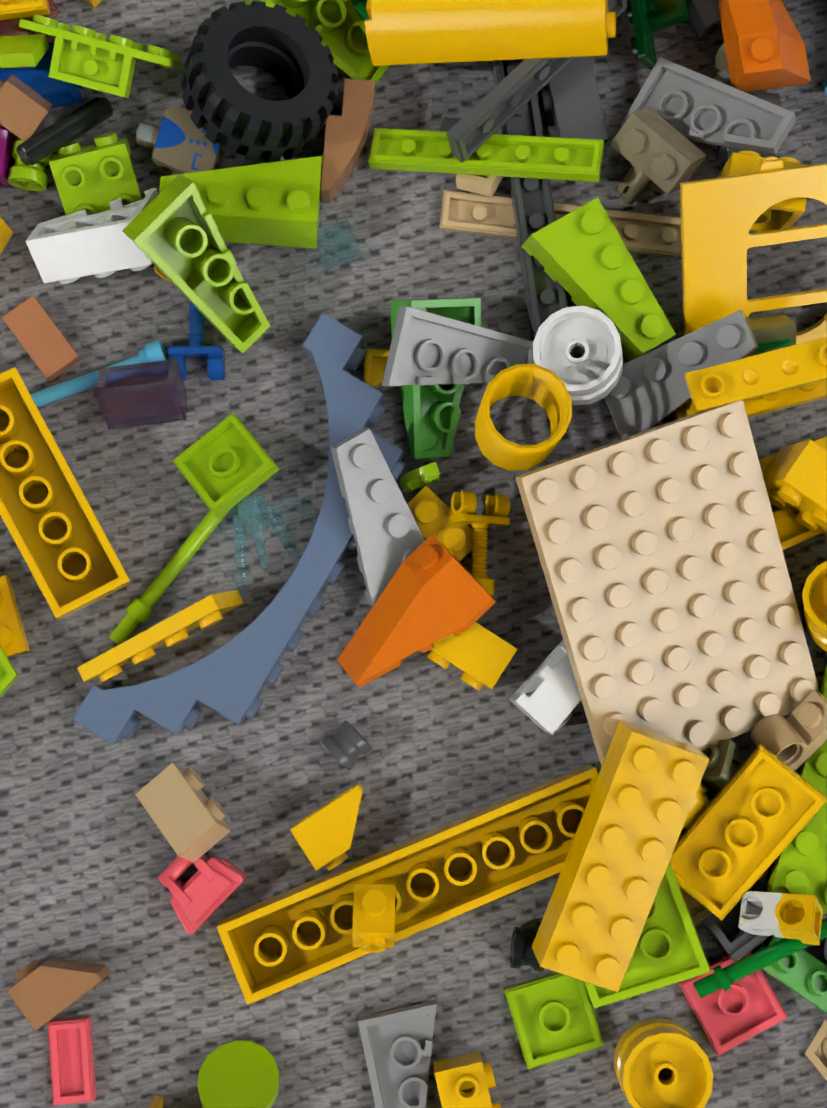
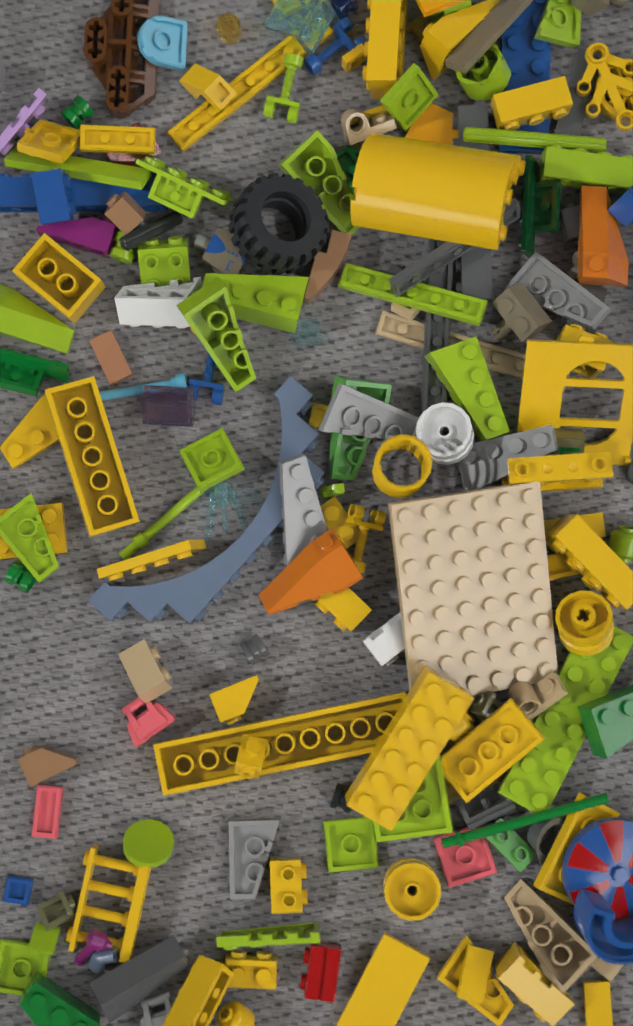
camera: 20 degrees right, 0 degrees up
(782, 916) = (503, 806): leg -> none

